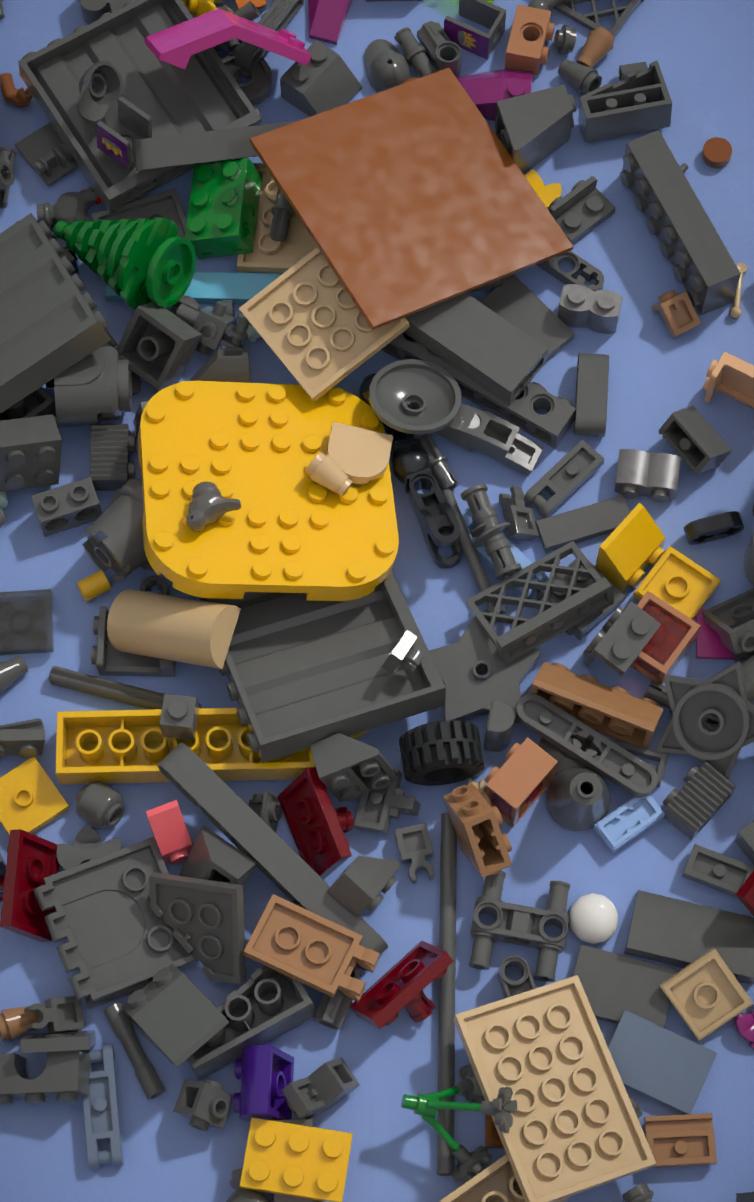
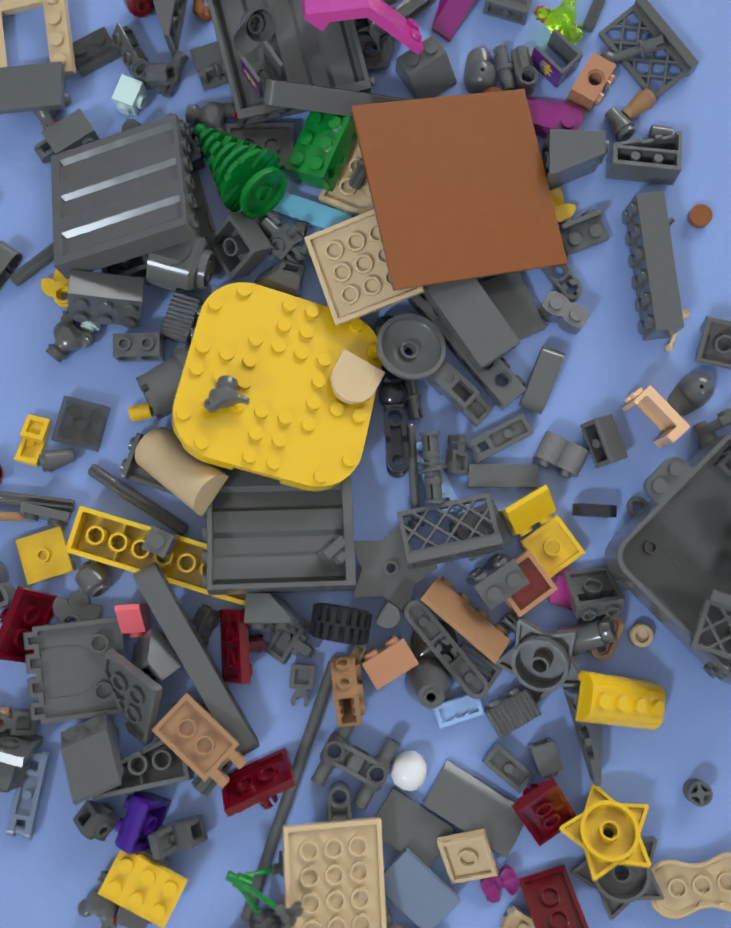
camera: 15 degrees right, 15 degrees up
(143, 1068) = (63, 781): dark grey piece -> none
(328, 474) = (325, 392): tan cone -> none
(362, 882) = (253, 702): dark grey slope -> none
(565, 39) = (619, 90): dark grey plate -> none
(677, 312) = (626, 334): medium nougat bracket -> none

